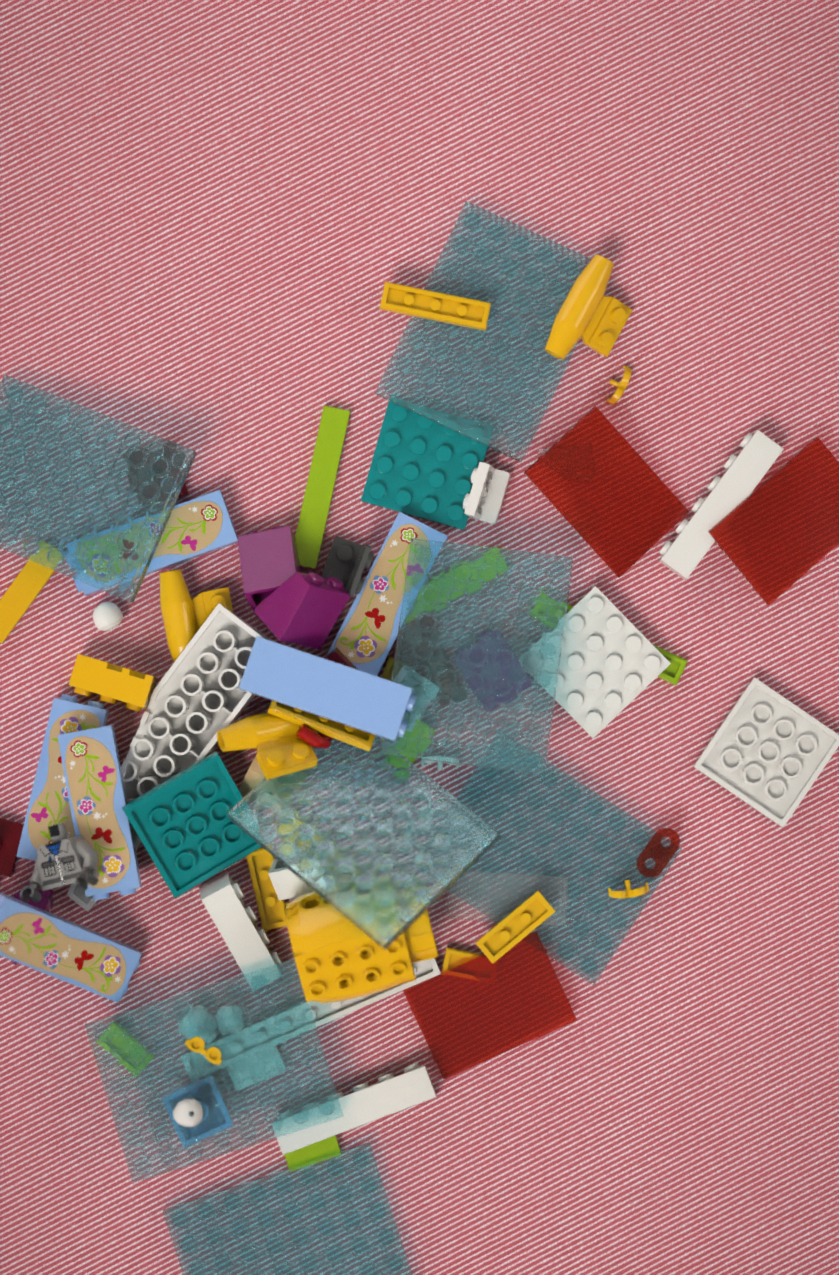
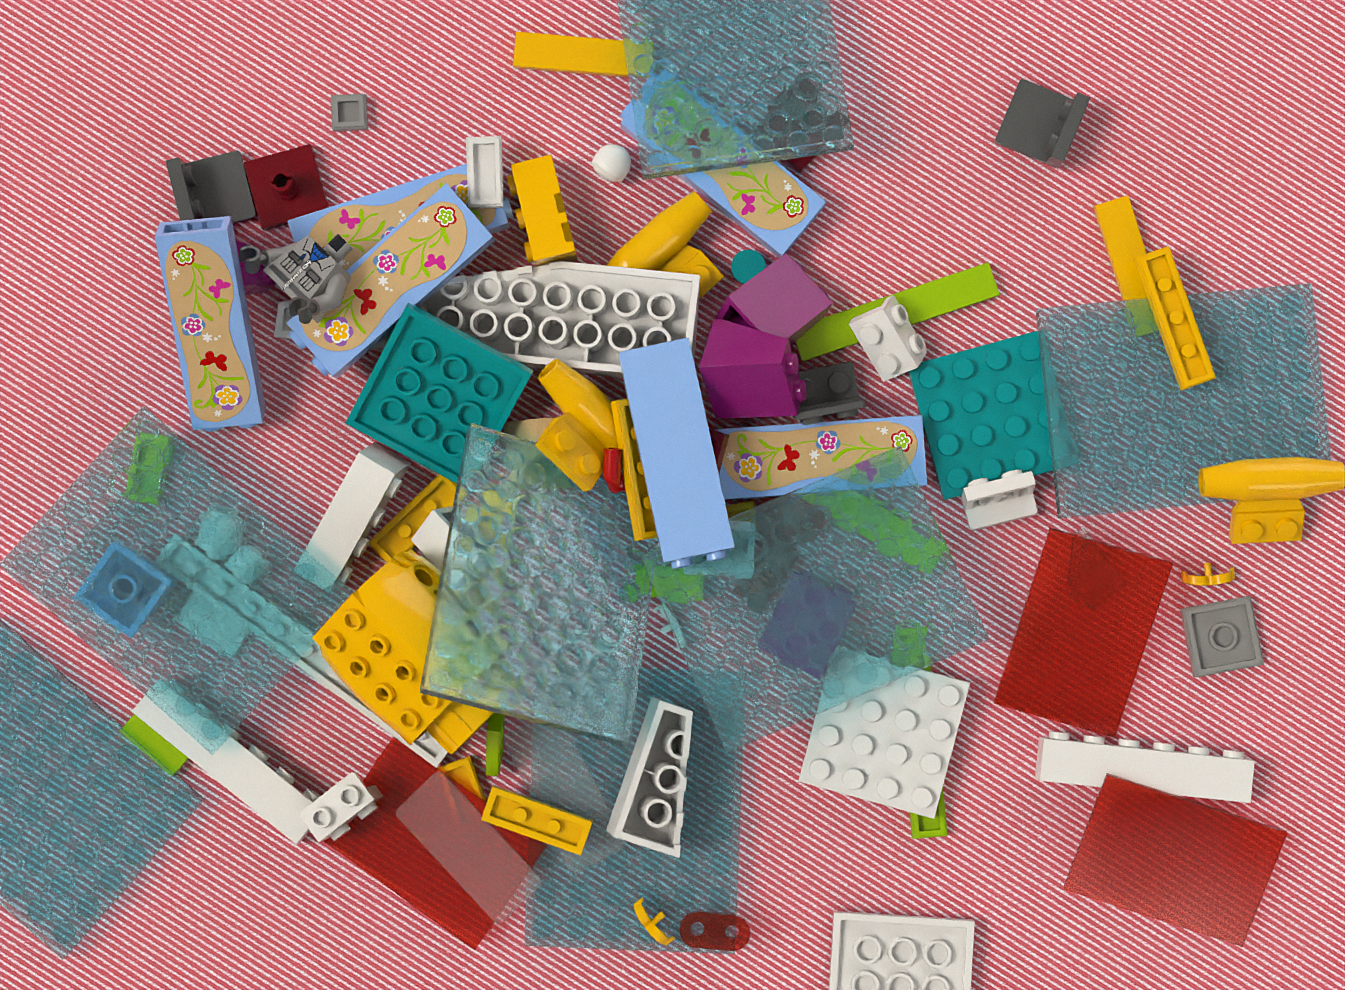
camera: 60 degrees right, 0 degrees up
(63, 705) = (484, 172): none -> white tile
(182, 1110) = (112, 571): white piece -> none
(212, 1054) = (194, 545): yellow piece -> none
(230, 567) = (747, 265): none -> teal tile
(252, 314) = (1041, 123): none -> dark grey bracket
(336, 502) = (889, 339): none -> white bracket
(365, 309) = (1122, 244): none -> yellow tile
(427, 1052) = (338, 806): none -> white bracket
(448, 924) = (494, 744): none -> lime tile
(506, 983) = (469, 847): none -> clear piece
(535, 832) = (655, 781): none -> white wedge
(664, 400) = (1221, 636): none -> light grey tile

